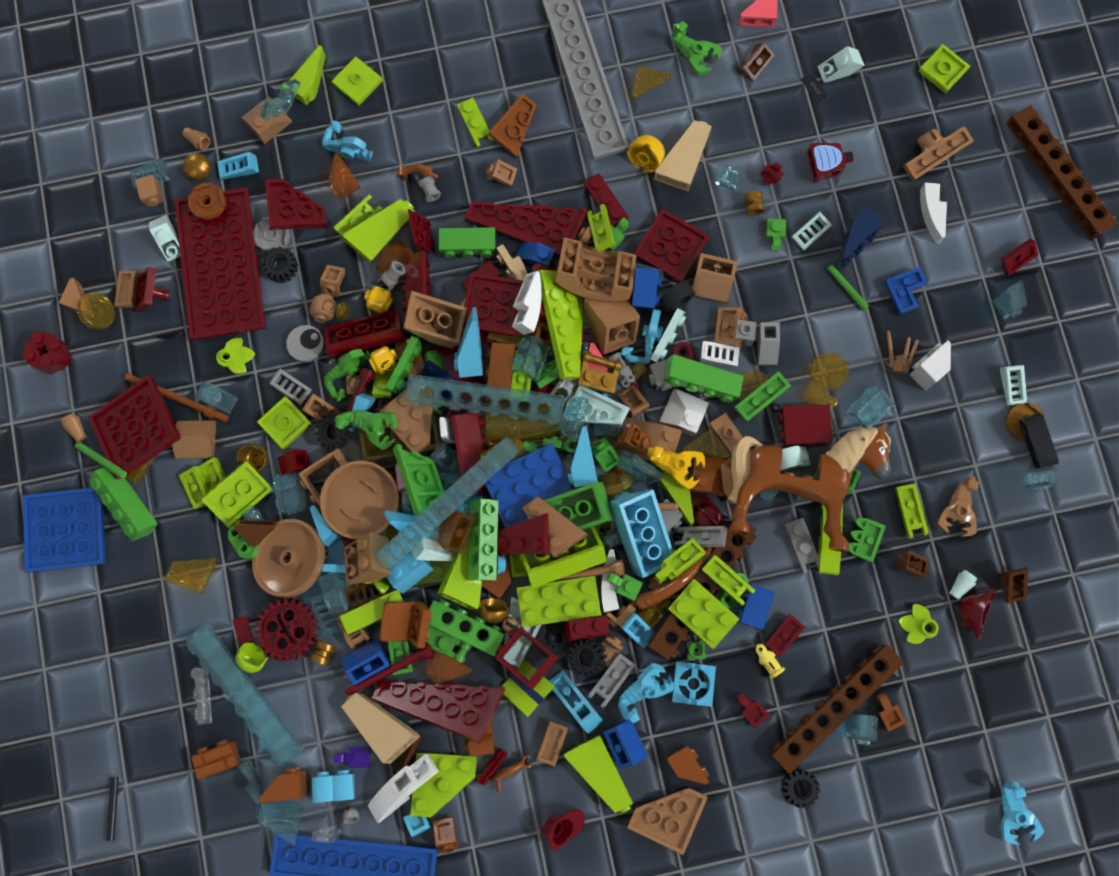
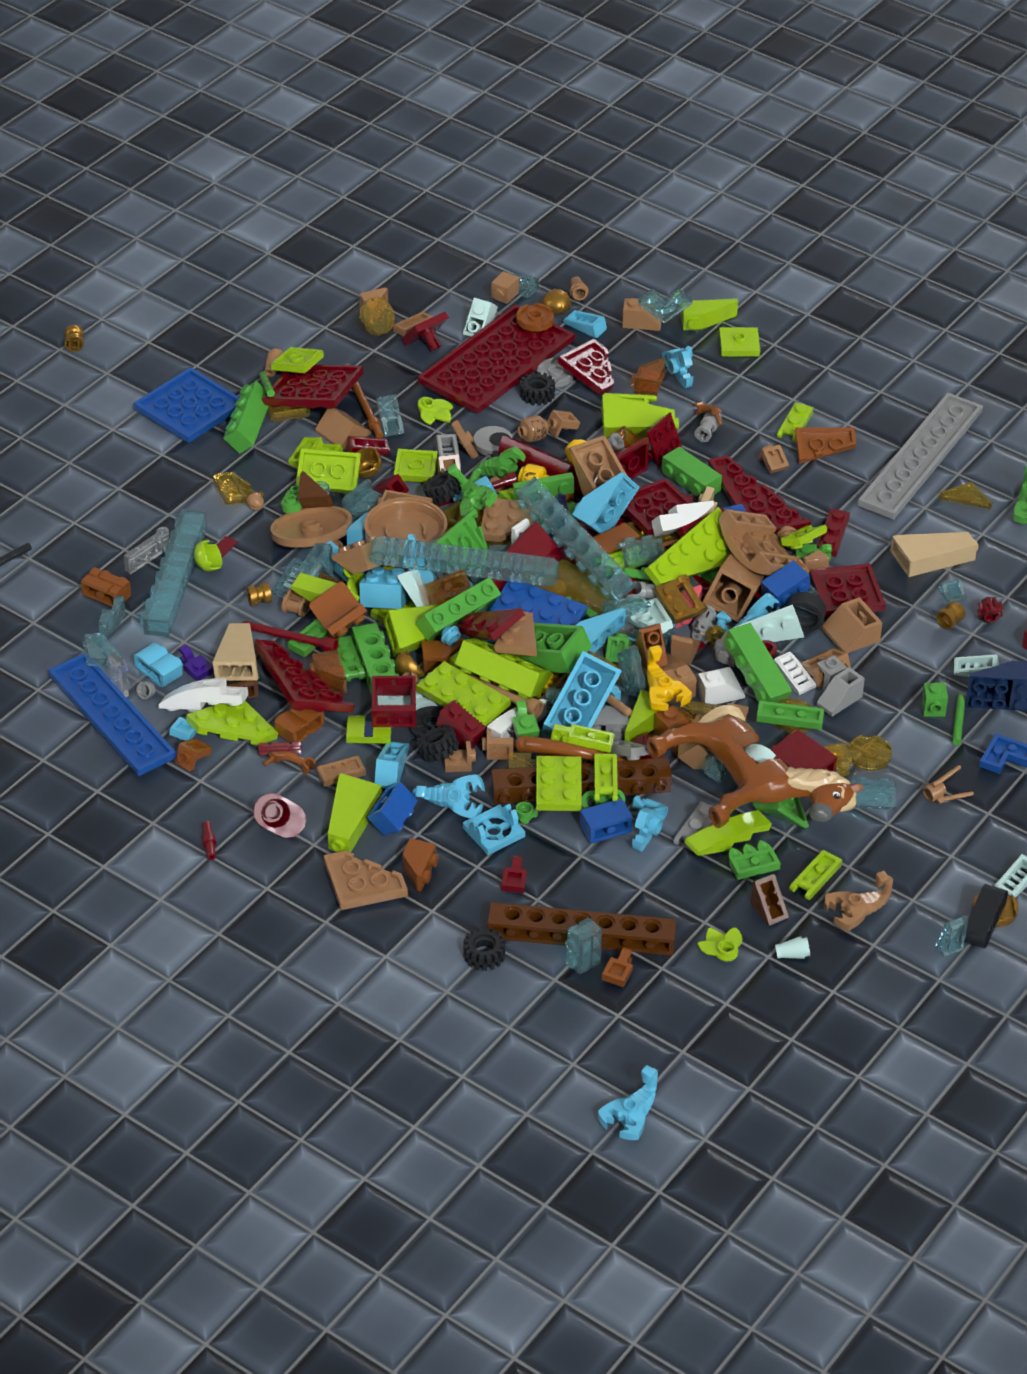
camera: 45 degrees right, 35 degrees down
(46, 353) = (313, 313): dark red brick -> none
(93, 414) = (297, 360): none -> lime plate
(219, 570) = (255, 501): none -> medium nougat hinge
(232, 448) = (355, 444): none -> dark red slope
(272, 640) = (241, 559): dark red gear -> none
(287, 786) = (129, 629): dark orange slope -> none
(290, 364) = (465, 438): none -> medium nougat plate
(342, 310) = (547, 445): clear yellow plate -> none
(365, 662) = (280, 617): blue brick -> none
(612, 679) = (434, 773): light grey hinge -> none
(630, 241) = (816, 560): none -> medium nougat slope
(638, 630) = (496, 755): medium azure slope -> none
(646, 152) = (903, 521): yellow cylinder -> none
(767, 656) = (570, 860): light yellow piece -> none
(775, 231) = (945, 645): bright green plate -> none
(781, 579) = (648, 820): none -> medium azure animal
(784, 635) = (604, 859): dark red plate -> none
(824, 289) = (934, 699): none -> bright green brick
(933, 366) = (959, 802): white slope -> none
(975, 610) = (783, 971): dark red hat -> none
(1014, 584) = (838, 980): reddish brown slope -> none

